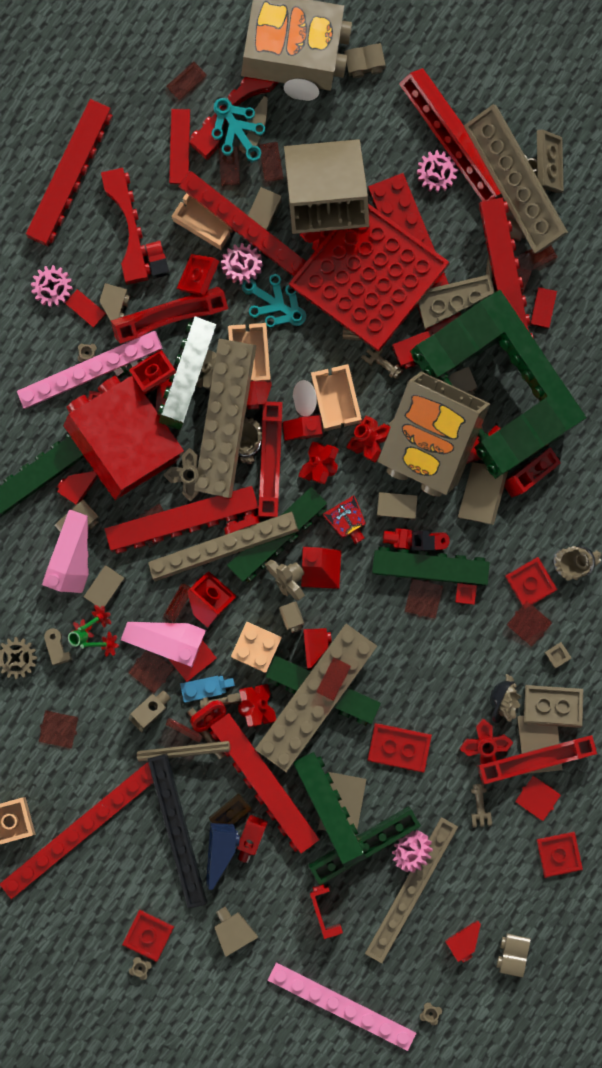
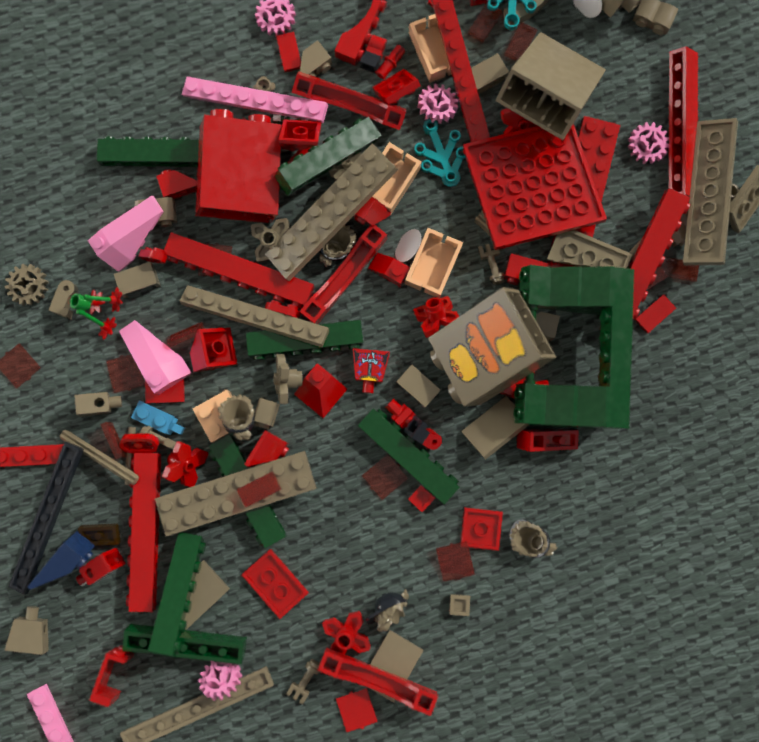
camera: 35 degrees right, 0 degrees up
(102, 559) = (153, 255): none -> red plate
(176, 256) = (390, 62): none -> red axle
(274, 633) = (237, 416): none -> dark tan hair
(320, 463) = (382, 307): red plant -> none
(553, 706) = (425, 644): dark tan tile -> none

